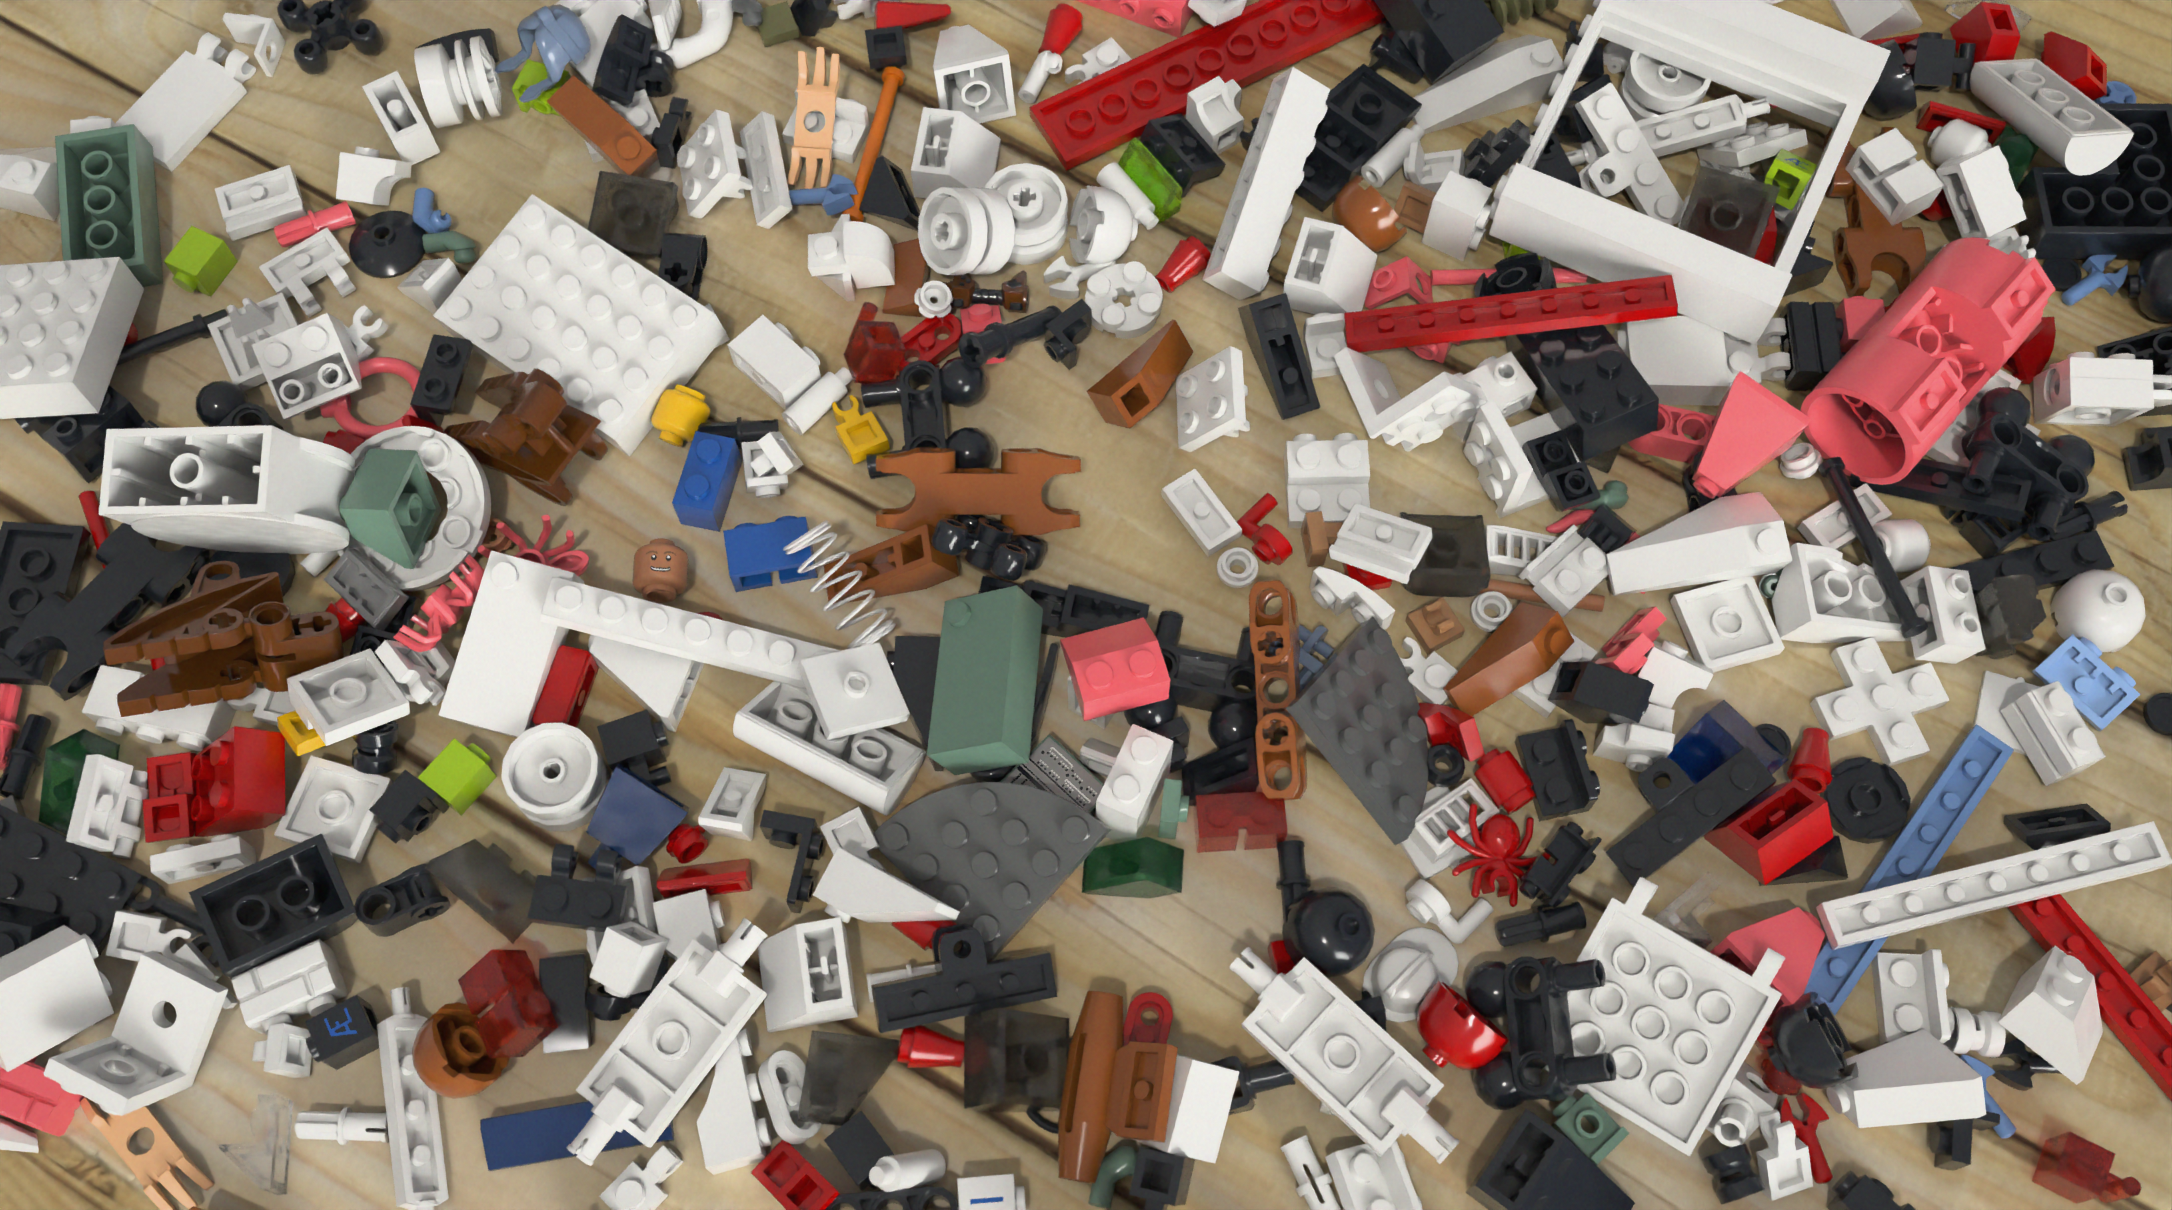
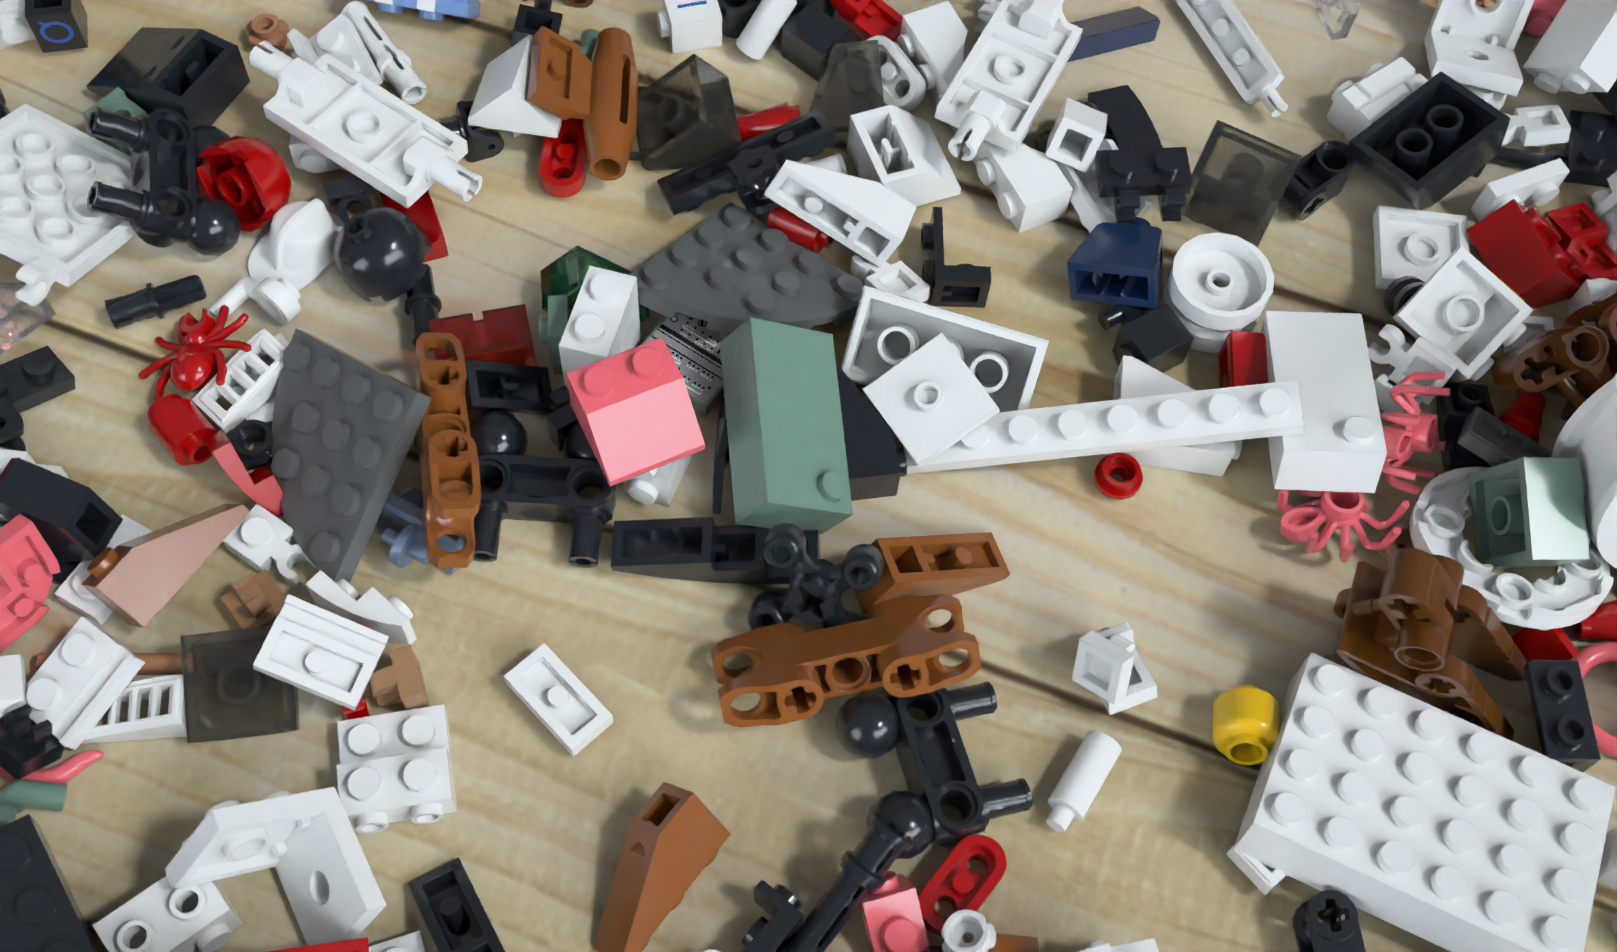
camera: 165 degrees right, 5 degrees down
(284, 1051) = (1354, 54): white tile -> none
(342, 1126) = (1281, 15): white axle -> none
(343, 1033) = (1311, 75): black brick -> none
(406, 808) = (1350, 259): black brick -> none
(452, 1054) = (1199, 57): dark orange cylinder -> none
(459, 775) = (1318, 285): lime brick -> none
(520, 1009) = (1181, 117): clear red piece -> none
(660, 571) = (1194, 523): nougat head -> none
(686, 843) = (1056, 268): red plate -> none
(707, 481) = (1181, 639): blue brick -> none
(715, 877) = (1031, 237): red slope -> none
(733, 804) = (1026, 289): white slope -> none
(741, 430) = (1165, 717): black axle -> none
(758, 550) = (1074, 566): blue piece -> none
(775, 361) = (1153, 811): white brick -> none
(859, 432) = (1013, 738): yellow plate -> none
(872, 633) = (1019, 529): white piece -> none
(873, 348) = (1030, 845): clear red brick -> none
(1211, 400) = (557, 840): white plate -> none
(1240, 557) = (502, 626): white plate -> none
(1268, 541) = (469, 667): red plate -> none
(1494, 601) = (177, 618): white plate -> none
(1501, 460) = (143, 808): white bracket -> none
(1558, 471) = (72, 814): black slope -> none
(1559, 771) = (120, 455): black bracket -> none
(1571, 857) = (118, 351): black hinge -> none

